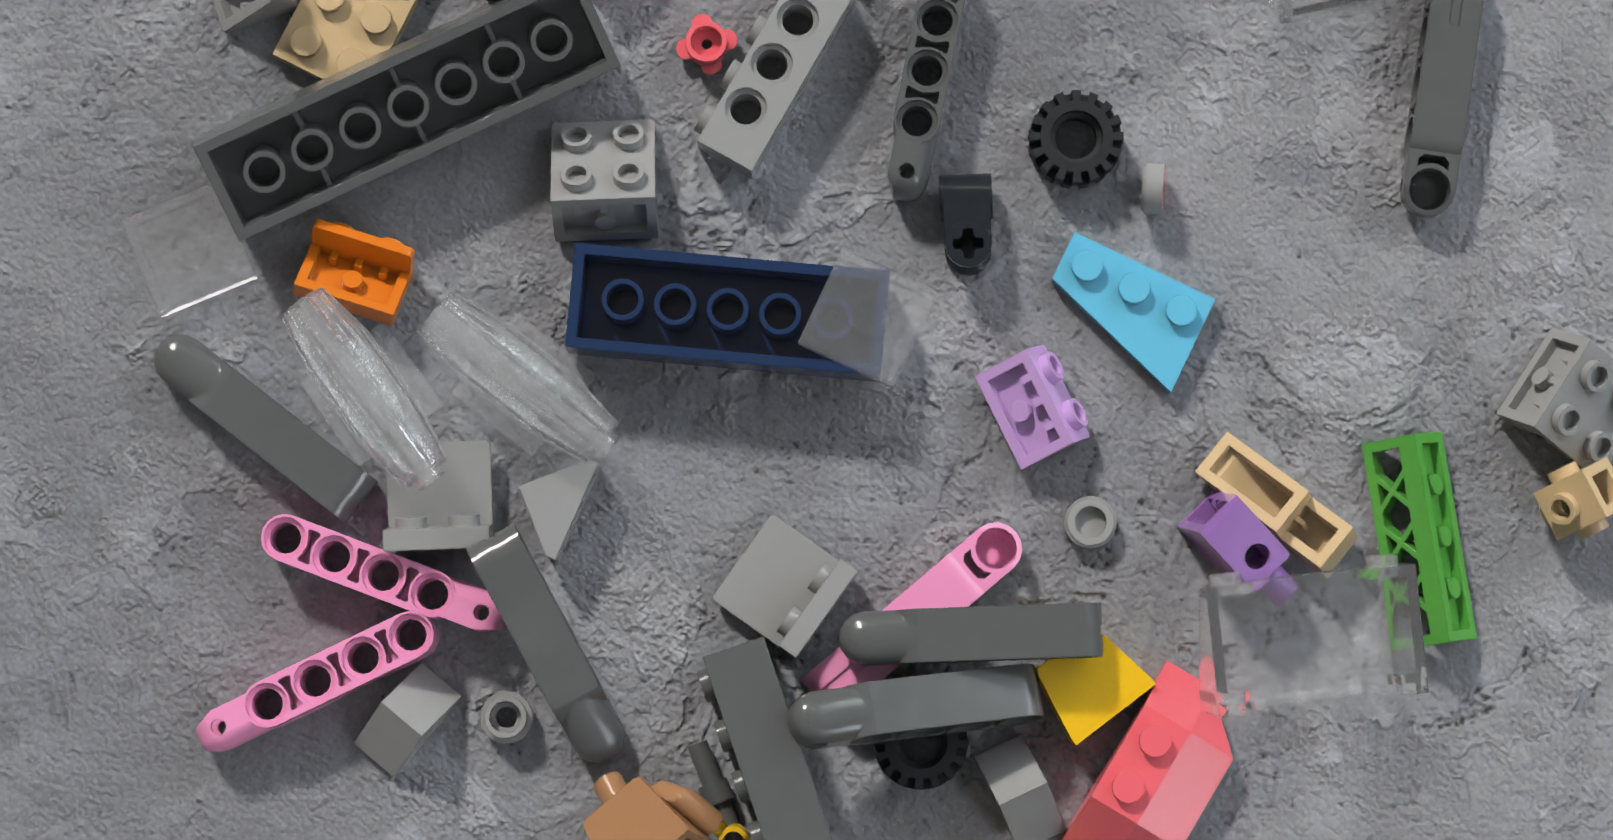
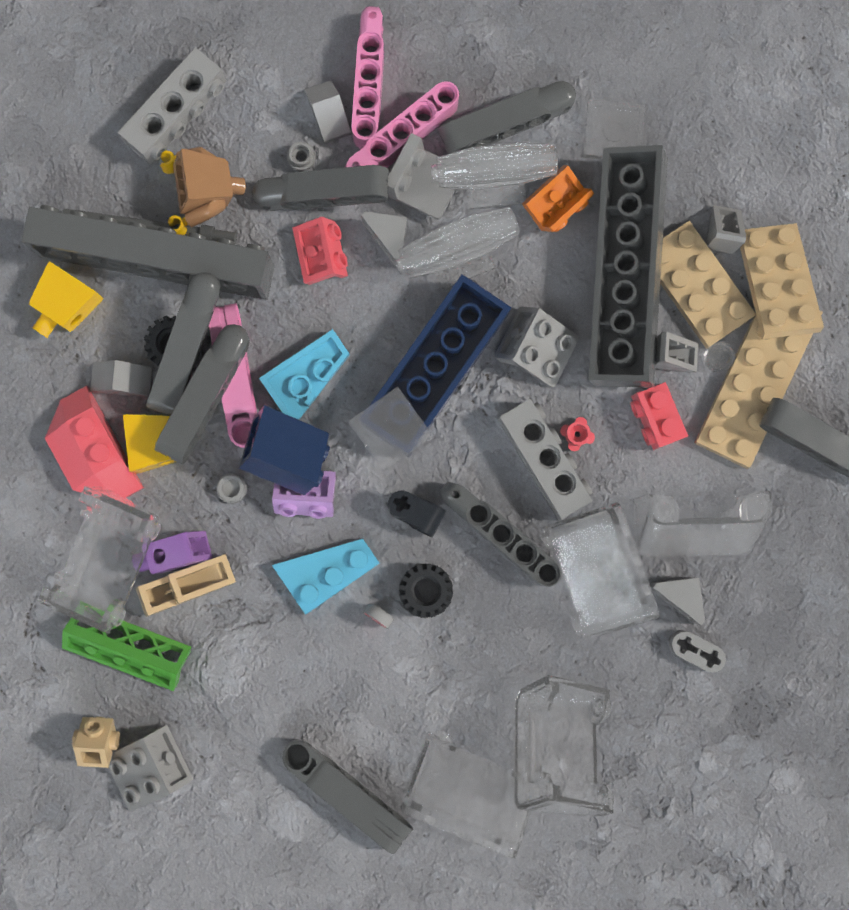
camera: 110 degrees right, 0 degrees up
(643, 597) = (320, 250): none -> coral bracket
(784, 586) = (285, 321): light grey bracket -> none
(853, 509) = (305, 374): none -> medium azure wing
(990, 461) = (285, 451): none -> dark blue brick

